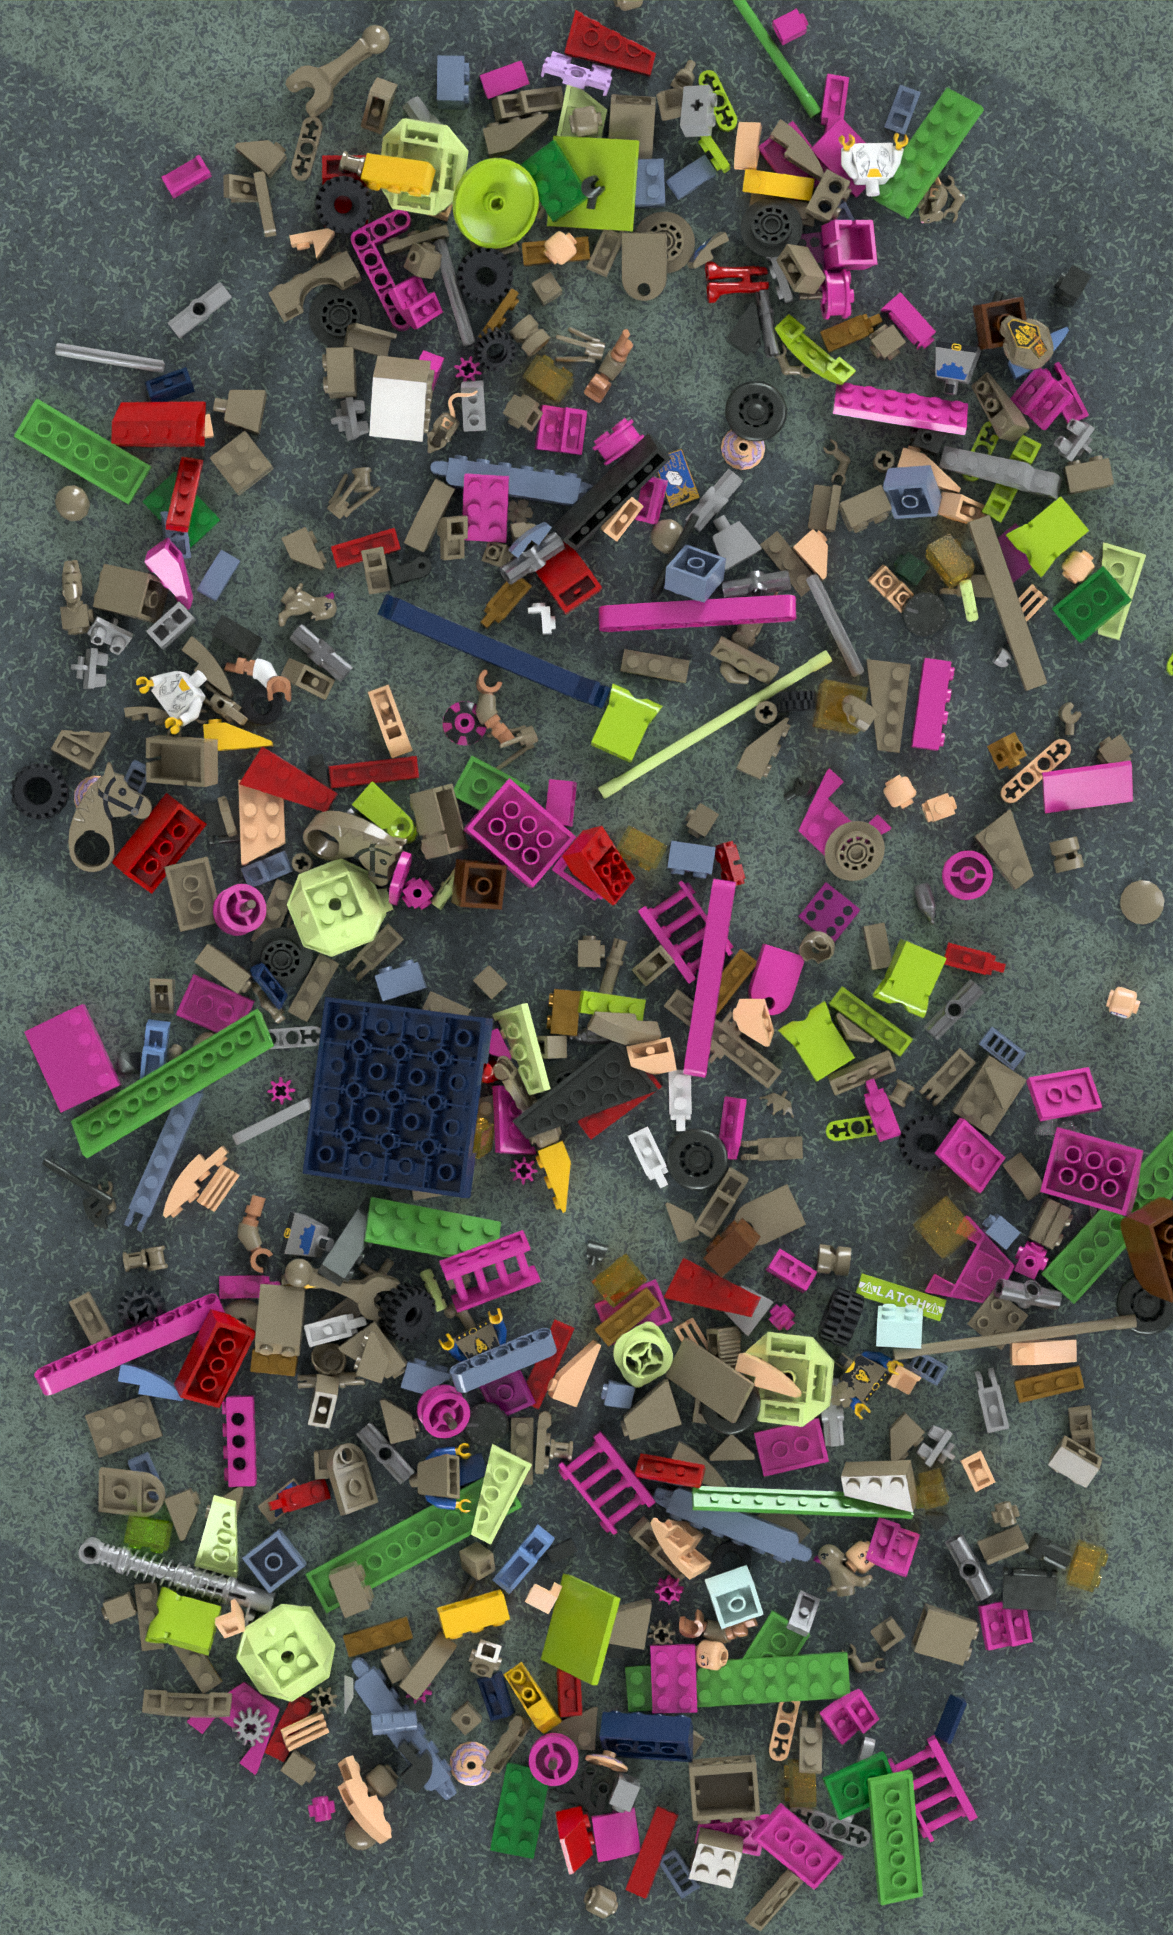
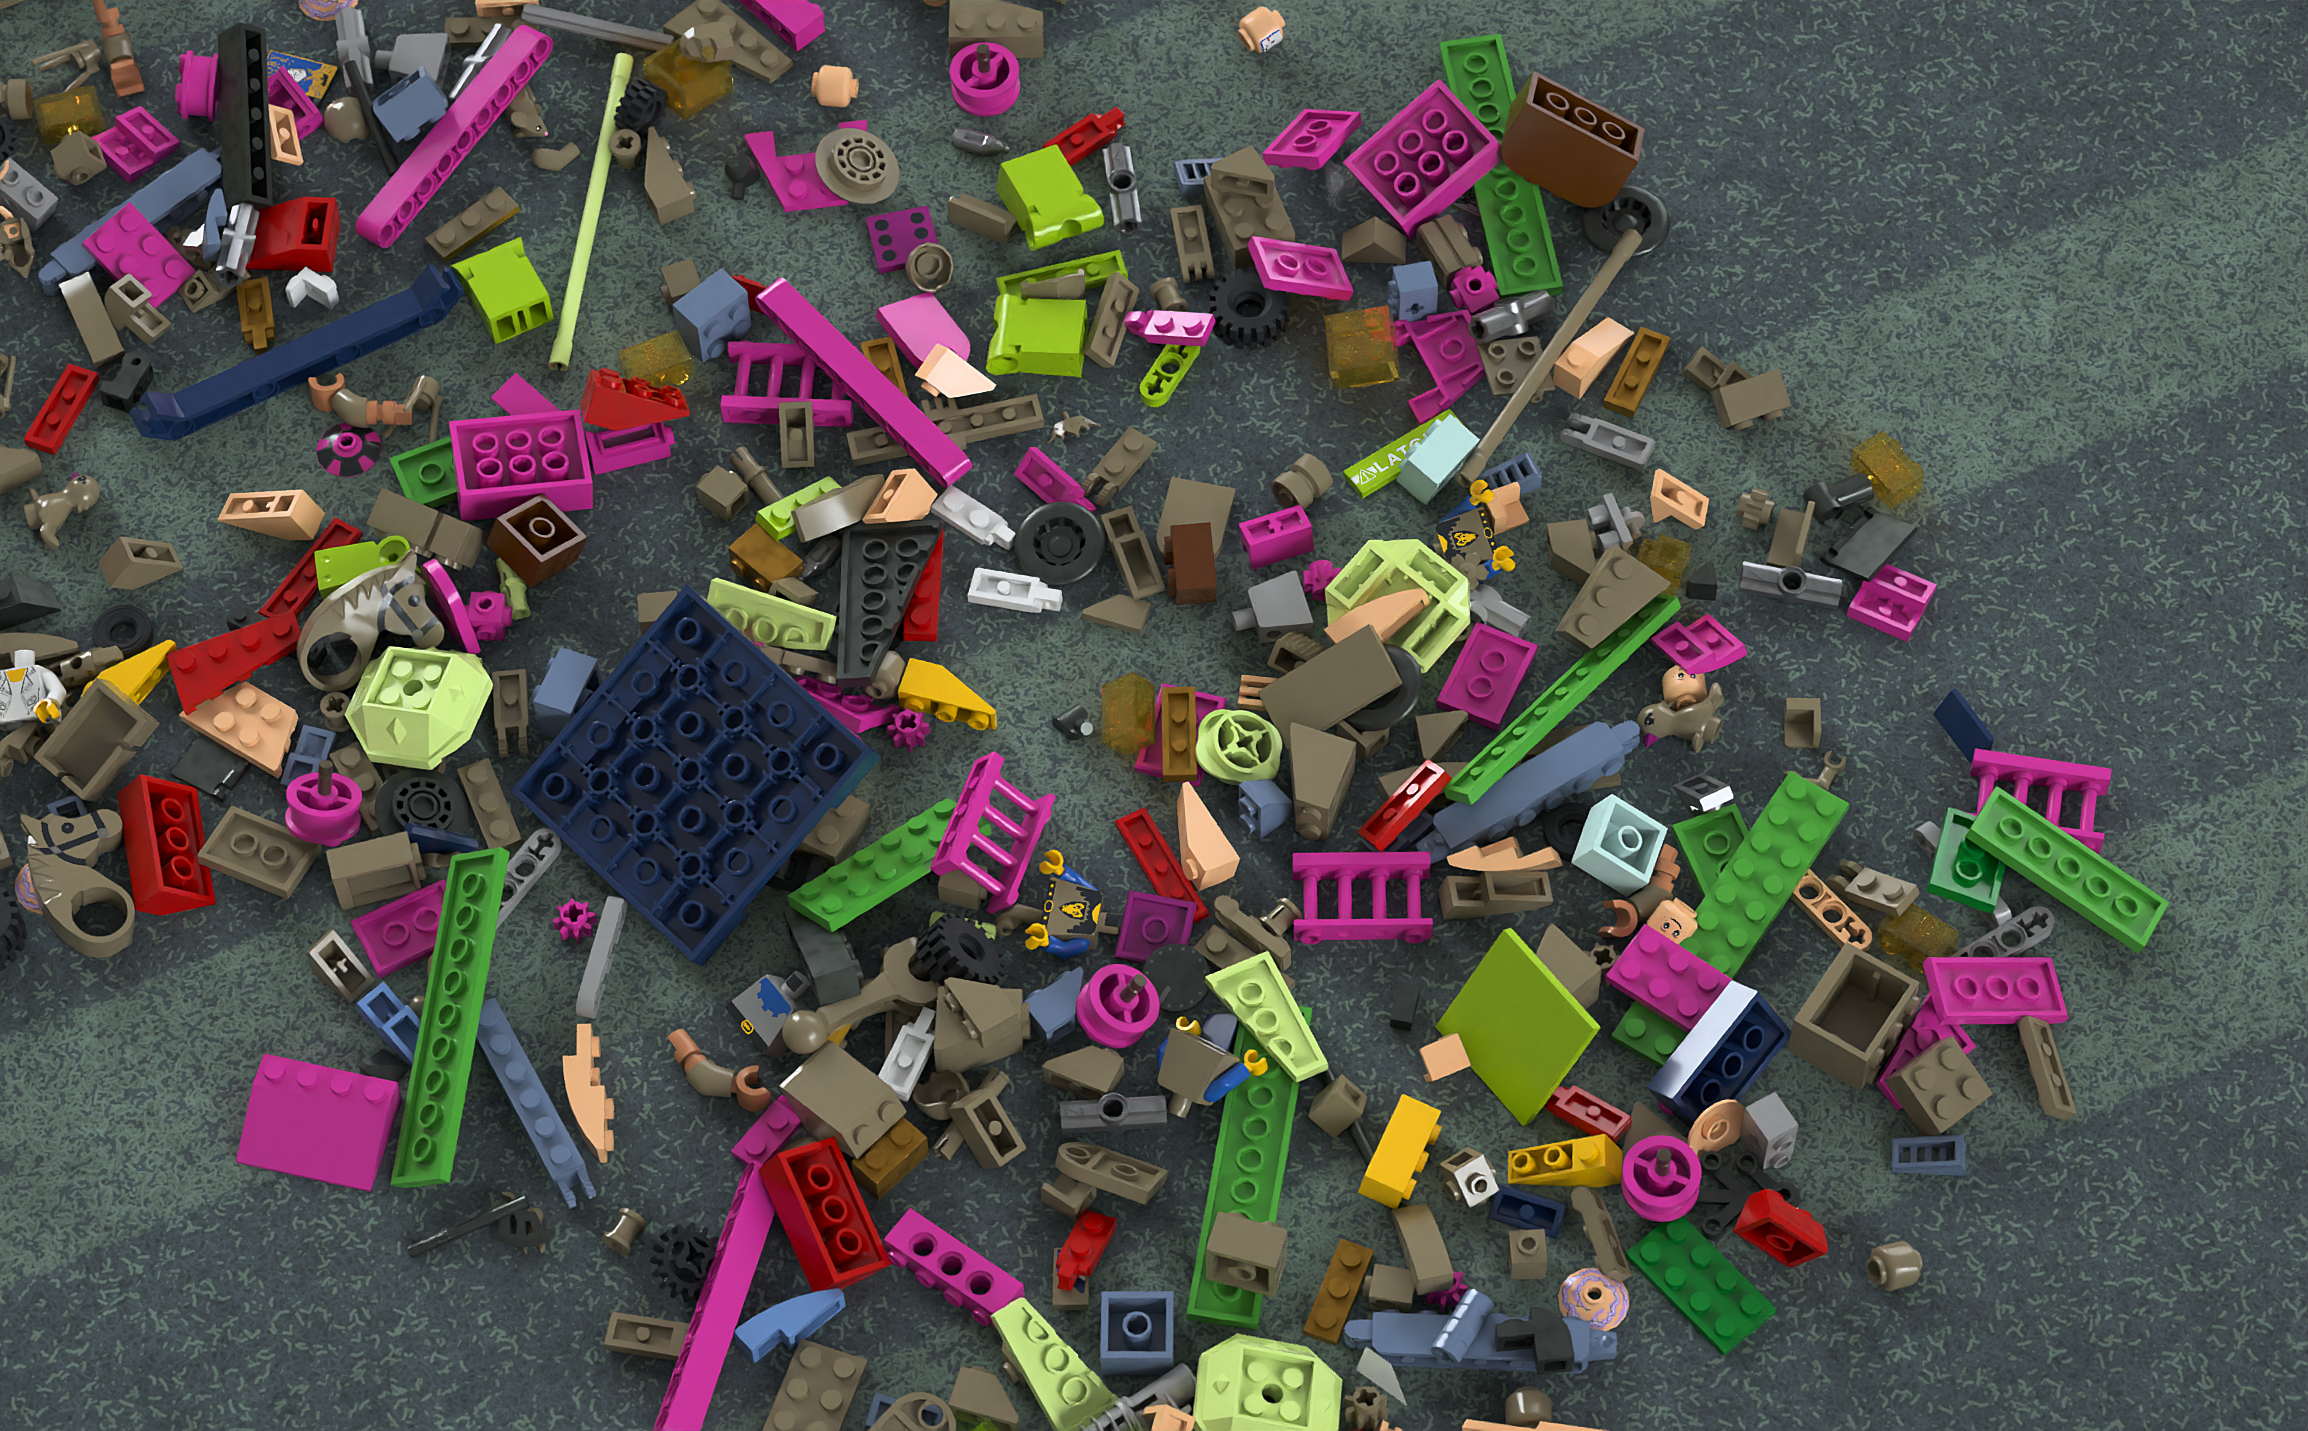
camera: 50 degrees left, 30 degrees down
(156, 1258) = (644, 1204): dark tan bush -> none
(218, 1188) = (623, 1073): light nougat tile -> none
(227, 816) = (210, 750): dark tan tile -> none
(263, 672) = (94, 598): nougat piece -> none
(320, 653) = (126, 523): flat silver piece -> none
(375, 570) = (93, 414): dark tan slope -> none
(503, 1360) = (1112, 891): sand blue beam -> none
(523, 1559) = (1379, 1053): medium blue slope -> none
(615, 1835) = (1819, 1189): dark pink slope -> none
(652, 1852) = (1875, 1166): red tile -> none
(673, 1586) = (1544, 911): dark pink gear -> none
(704, 1288) = (1216, 632): red wing -> none
(744, 660) = (549, 129): dark tan plate -> none
(841, 1317) = (1373, 506): black tyre -> none
(849, 1715) = (1872, 826): dark pink slope -> none
(939, 807) = (887, 59): light nougat brick -> none
(944, 1635) = (1849, 662): dark tan slope -> none

